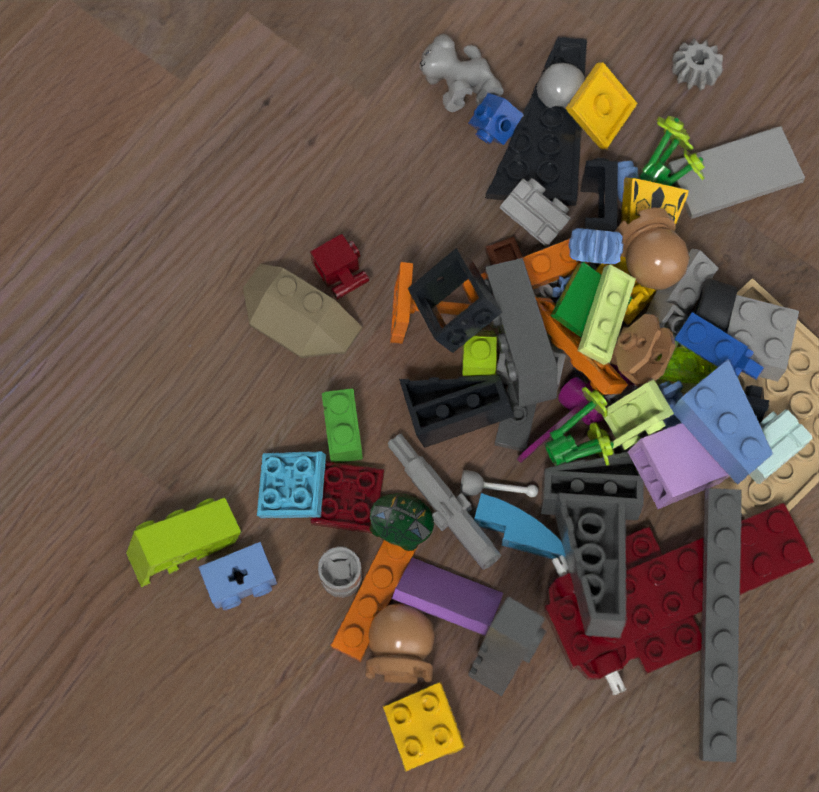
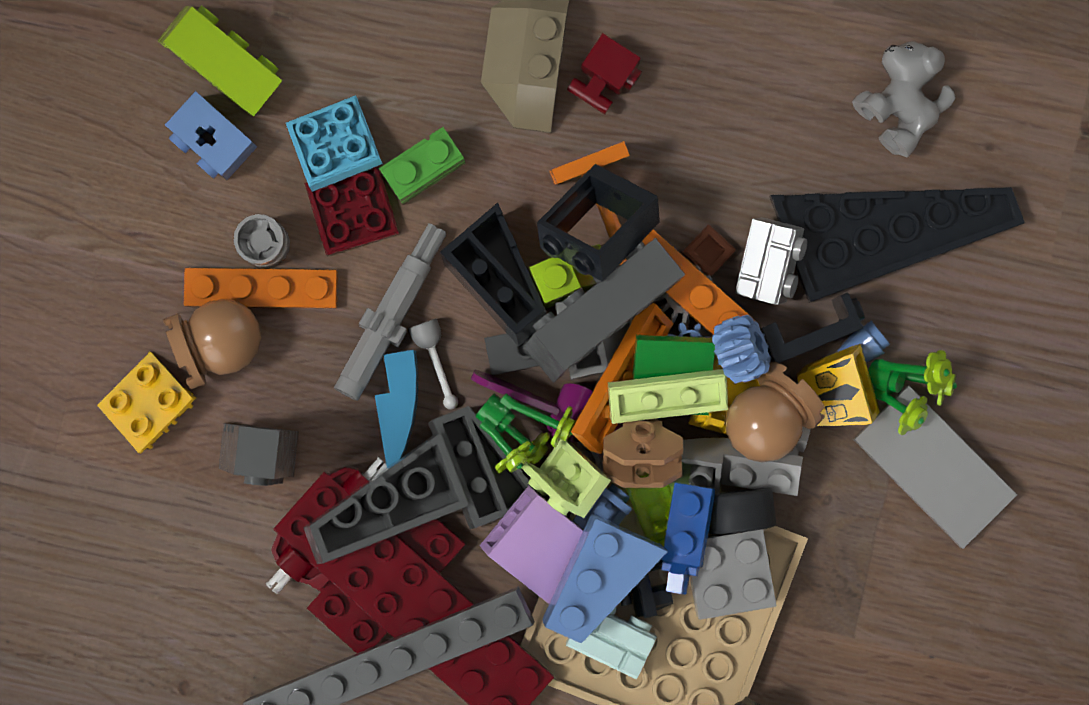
camera: 70 degrees right, 15 degrees up
(401, 520) = (349, 278): dark green dish -> none
(448, 596) = (287, 365): medium lavender tile -> none
(495, 119) = (865, 164): blue brick -> none
(559, 84) = (944, 221): light grey hair -> none
(601, 105) = (942, 277): yellow tile -> none
(697, 64) = (1051, 350): light grey gear -> none

